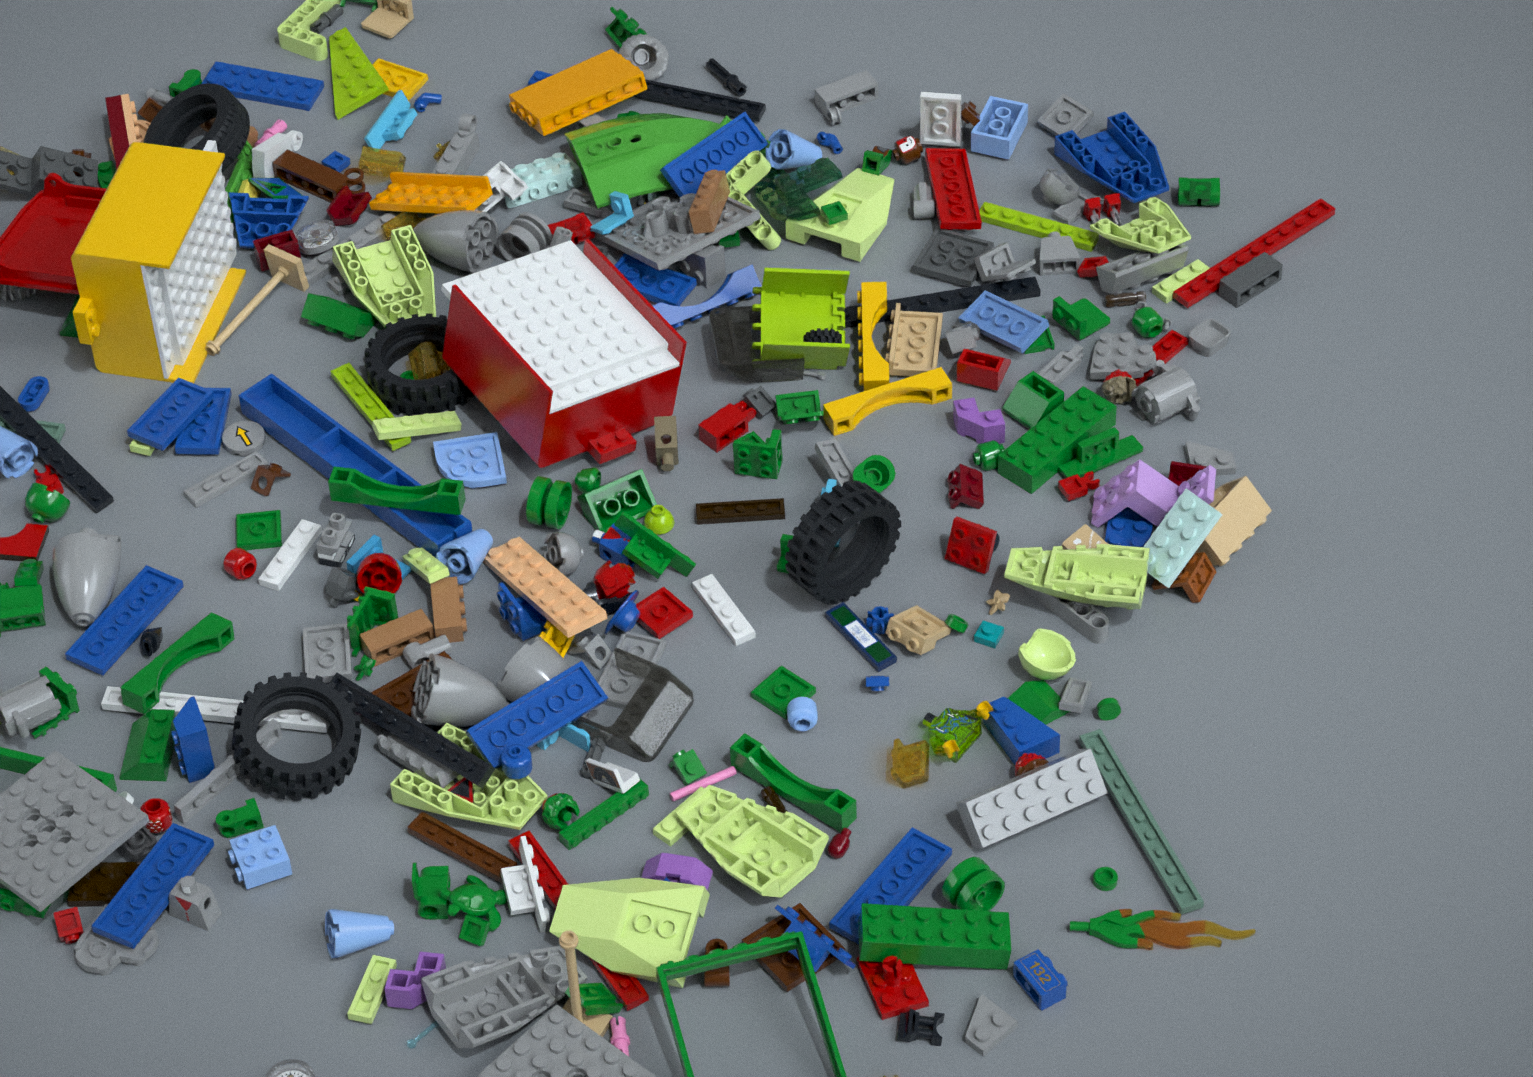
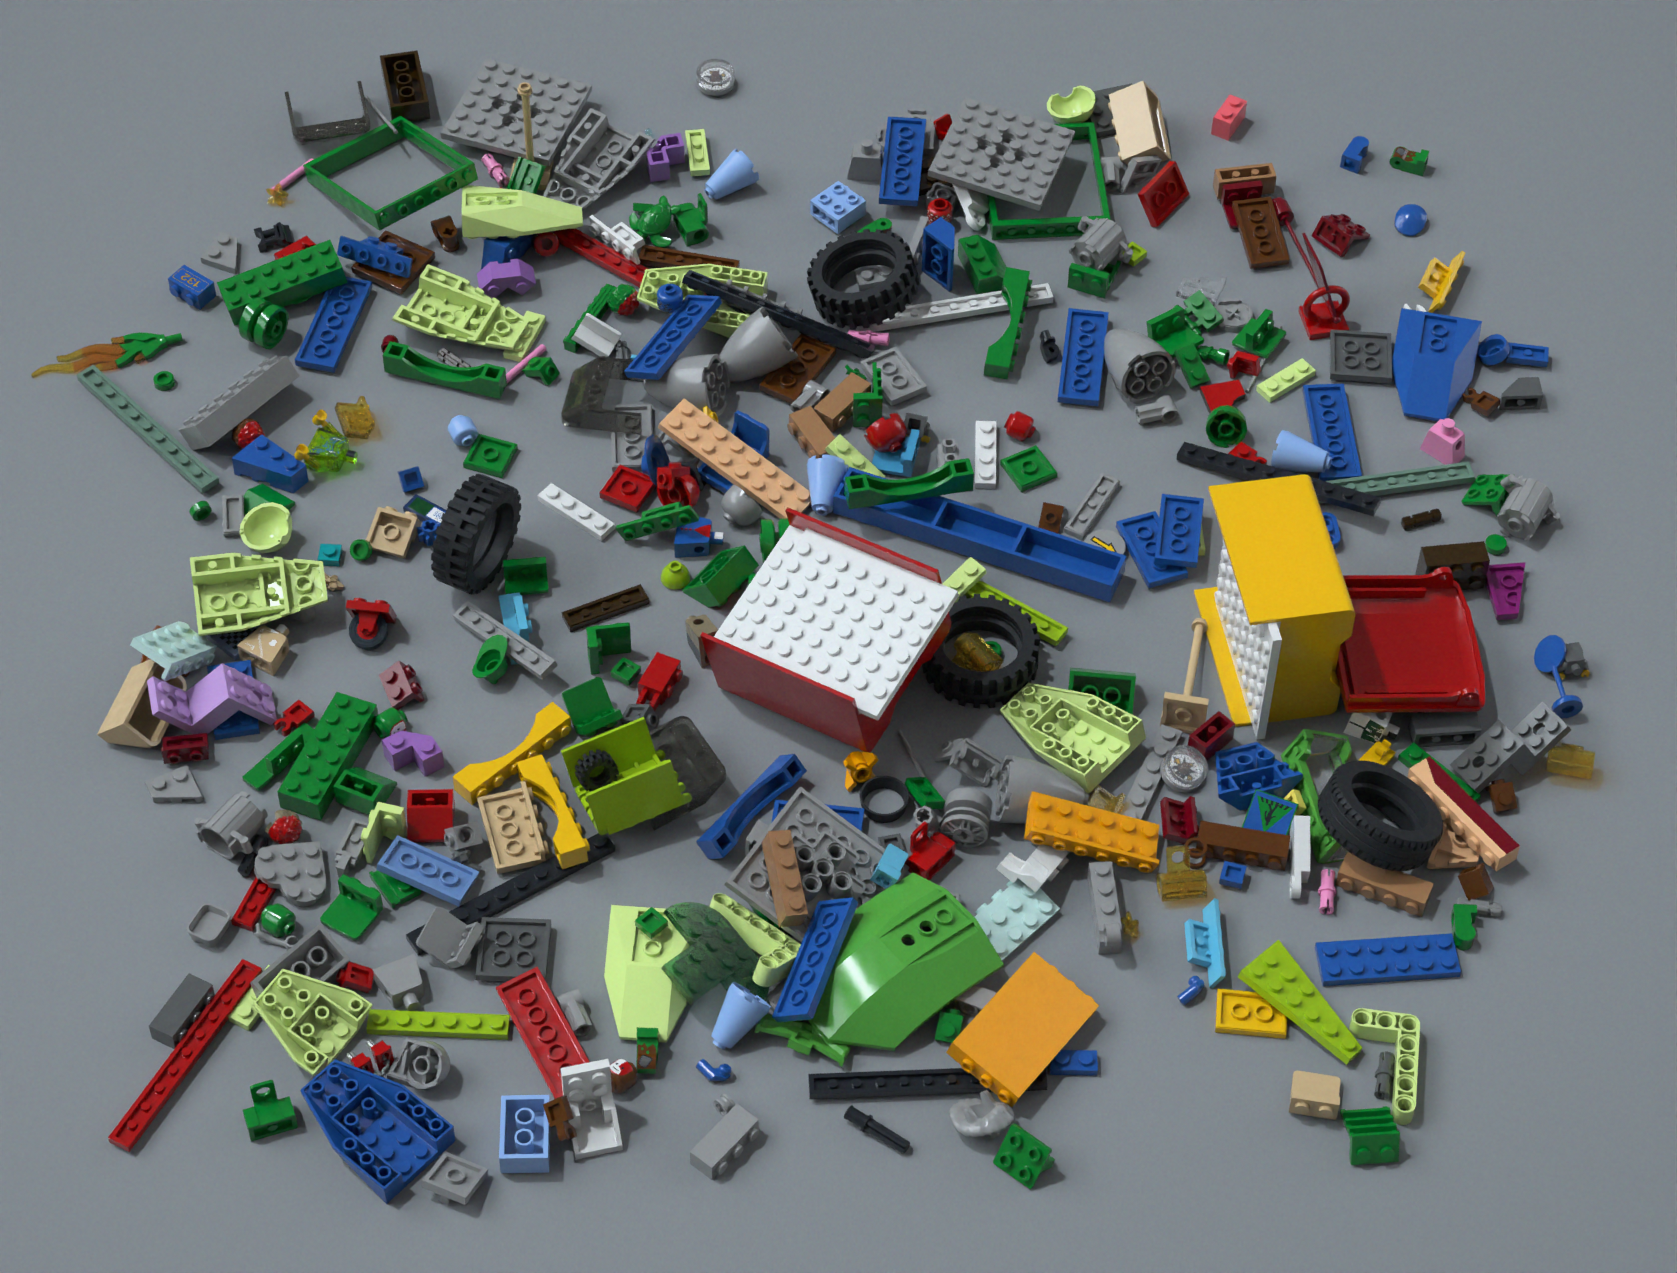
camera: 155 degrees right, 5 degrees up
(1025, 359) = (383, 821): none -> yellowish green bracket

